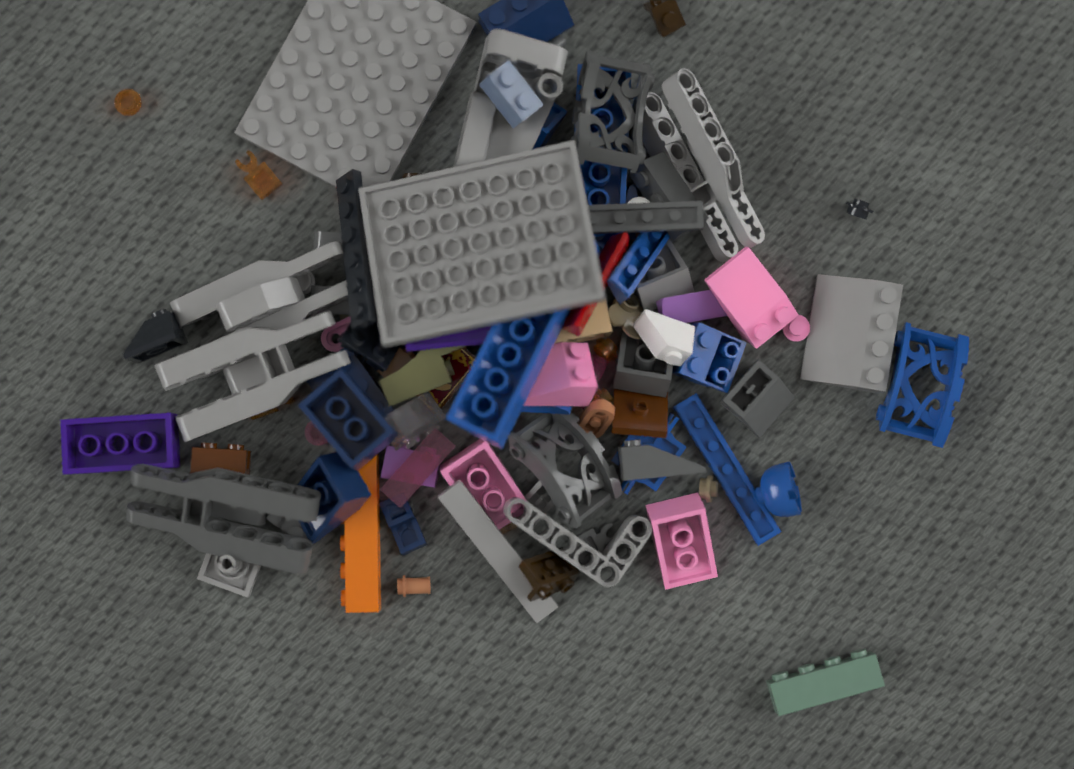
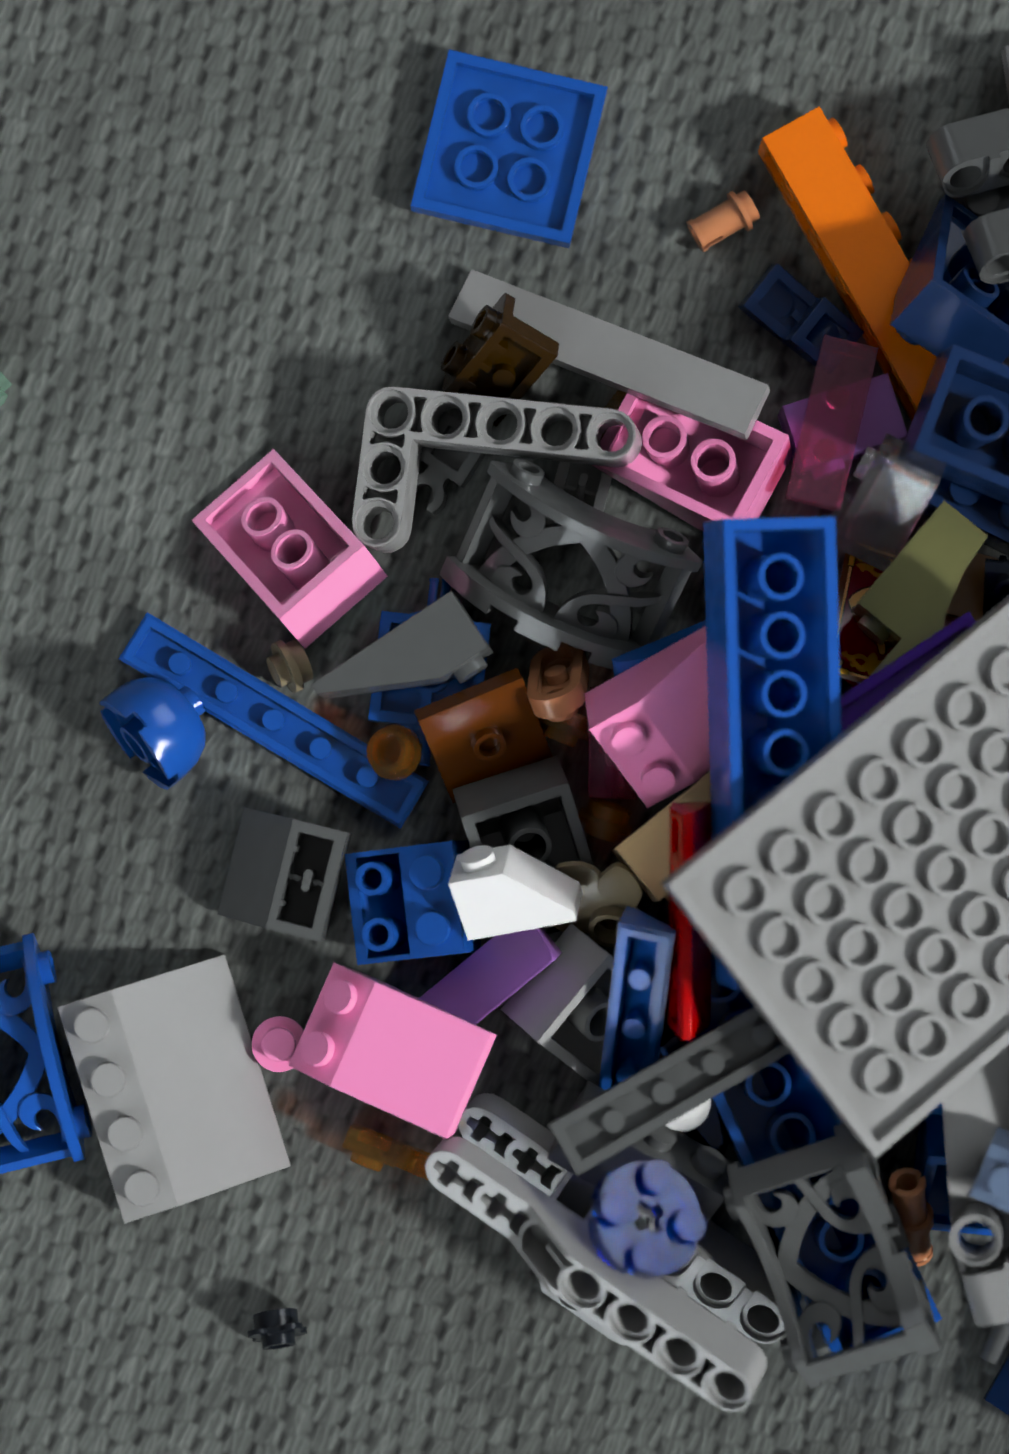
camera: 155 degrees right, 0 degrees up
(491, 669) = (509, 148): none -> blue plate
(565, 114) = (915, 1212): none -> nougat pin
(669, 160) = (676, 1213): none -> clear blue plate
(683, 426) = (394, 752): none -> clear orange plate
(777, 261) = (374, 1149): none -> clear orange plate

